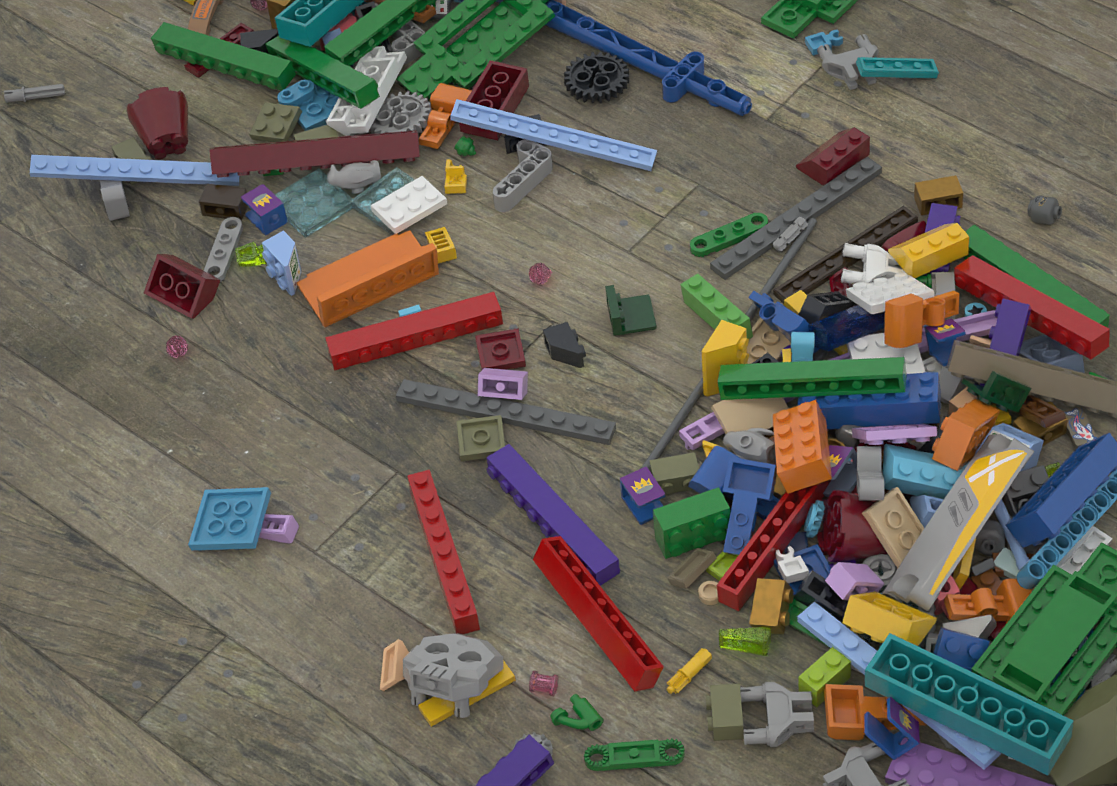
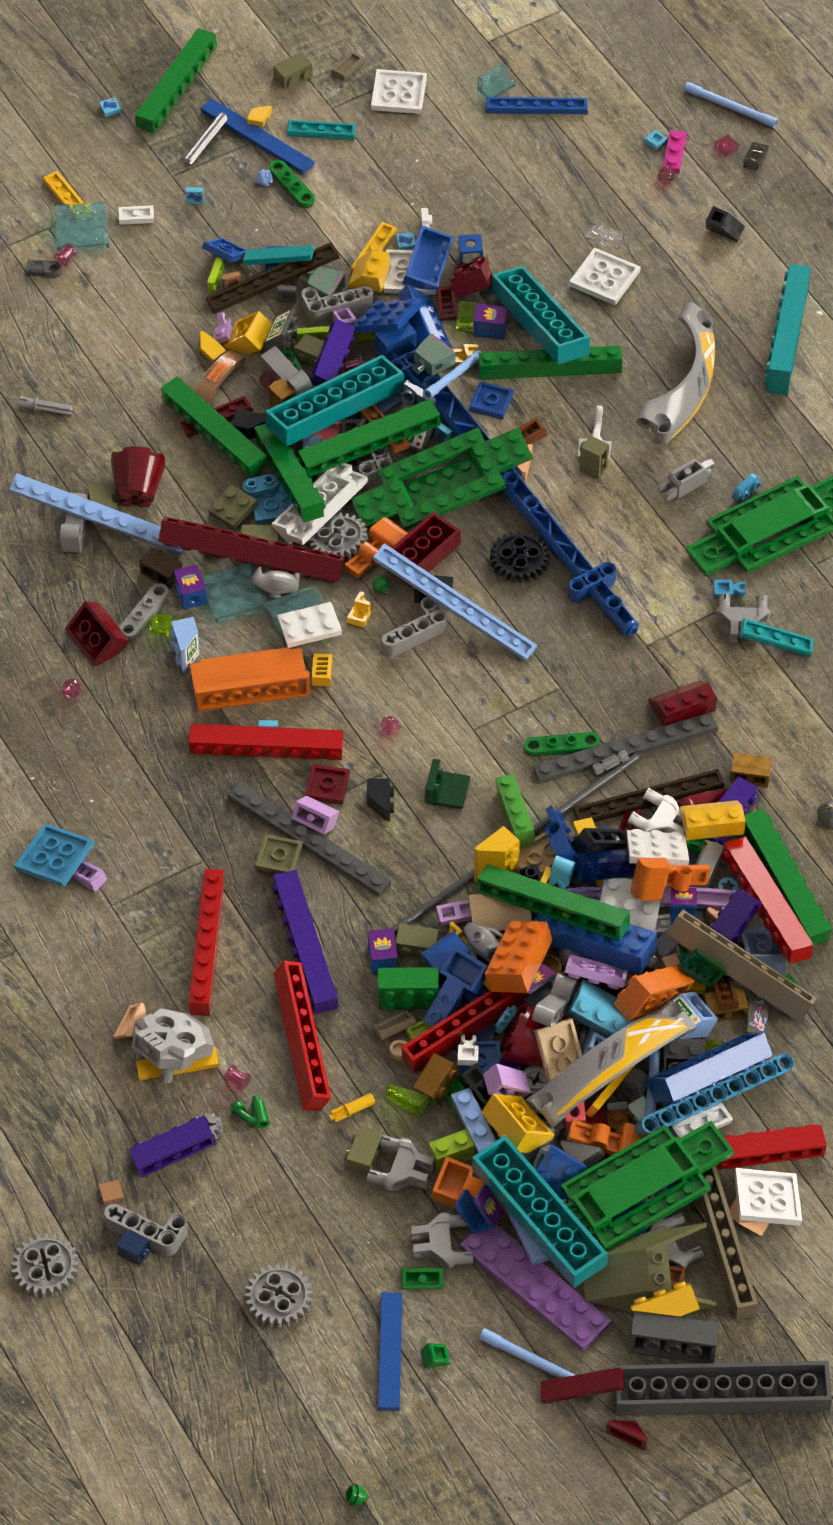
camera: 15 degrees right, 5 degrees up
(634, 755) = (280, 1158): green plate -> none

